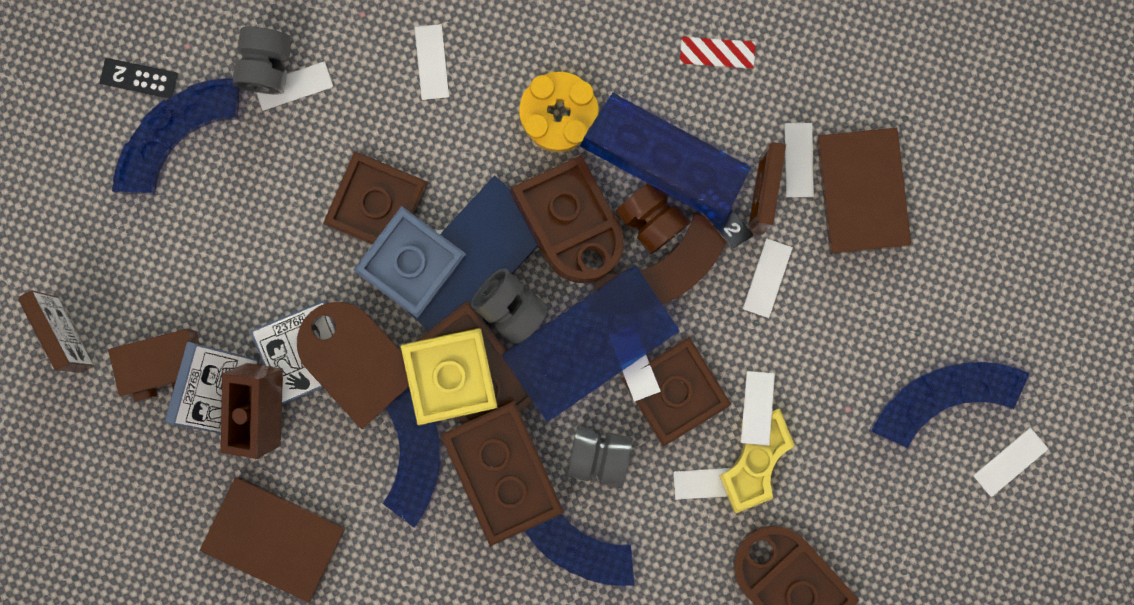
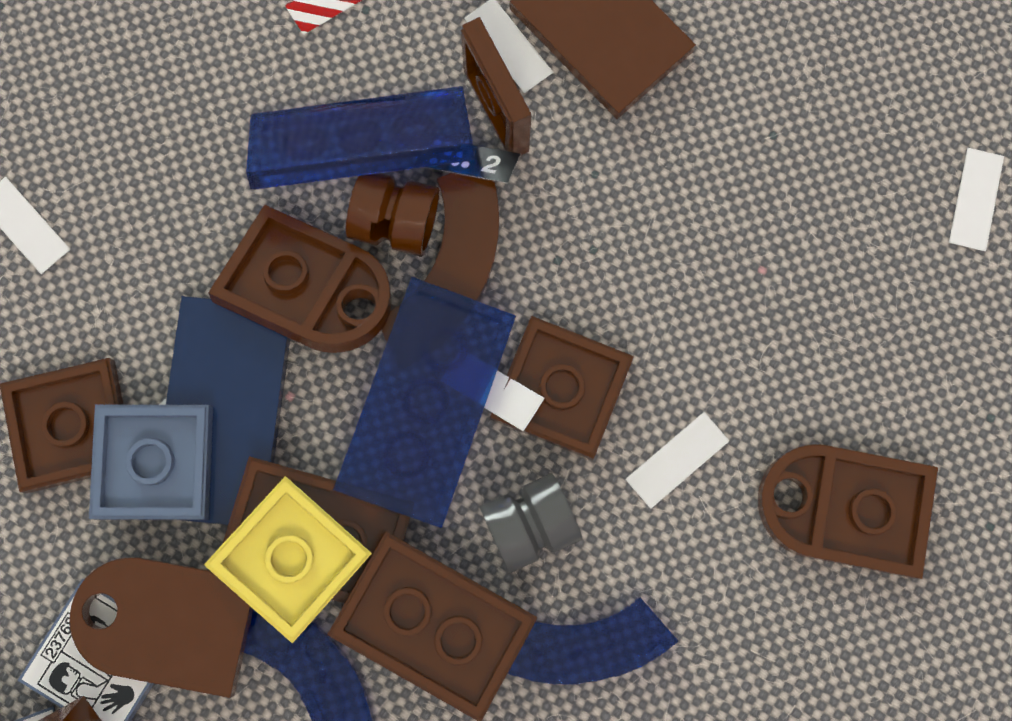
camera: 35 degrees left, 5 degrees down
(504, 302) = (321, 429): dark grey wheel -> none
(544, 93) = (176, 164): yellow plate -> none
(750, 477) = (714, 421): light yellow tile -> none
(757, 408) = (665, 339): white sticker -> none
(767, 278) = (569, 193): white sticker -> none
(945, 388) = (840, 181): clear blue tile -> none

